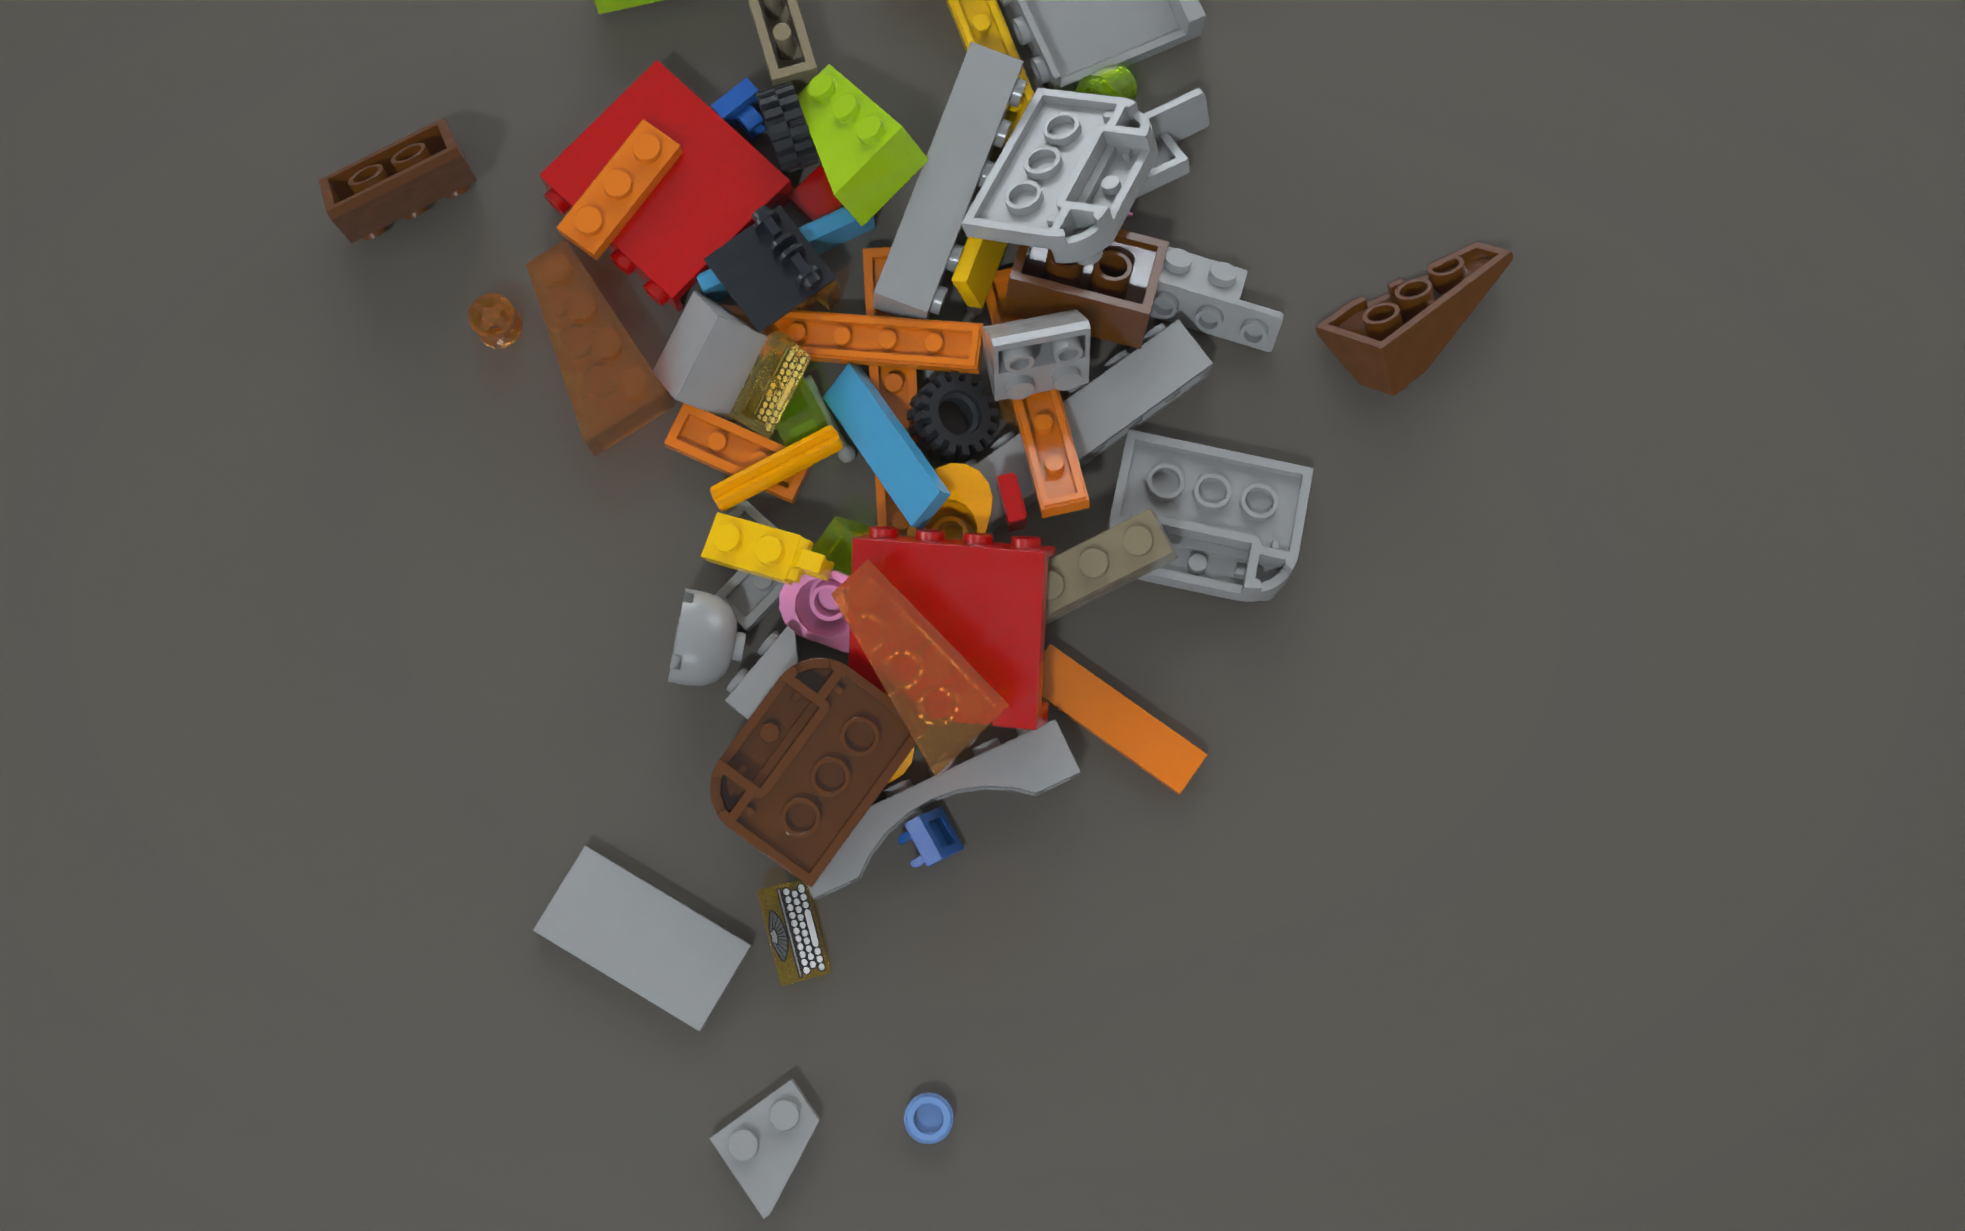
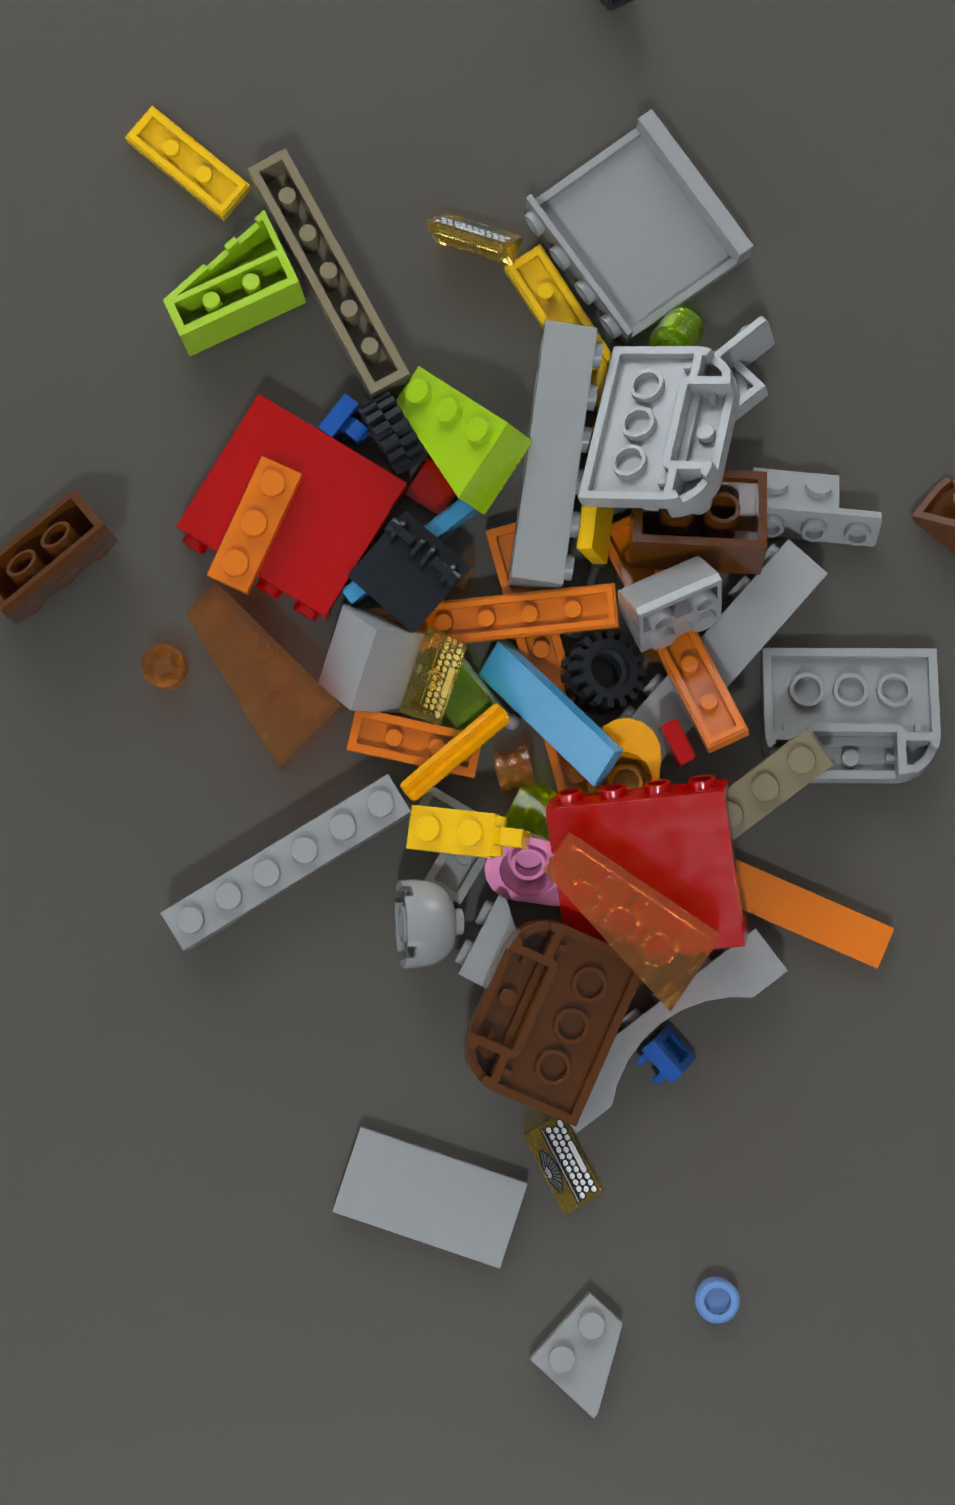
camera: 10 degrees left, 5 degrees up
(510, 566) = (286, 863): none -> light grey arch
(835, 500) = (513, 769): none -> clear orange wheel

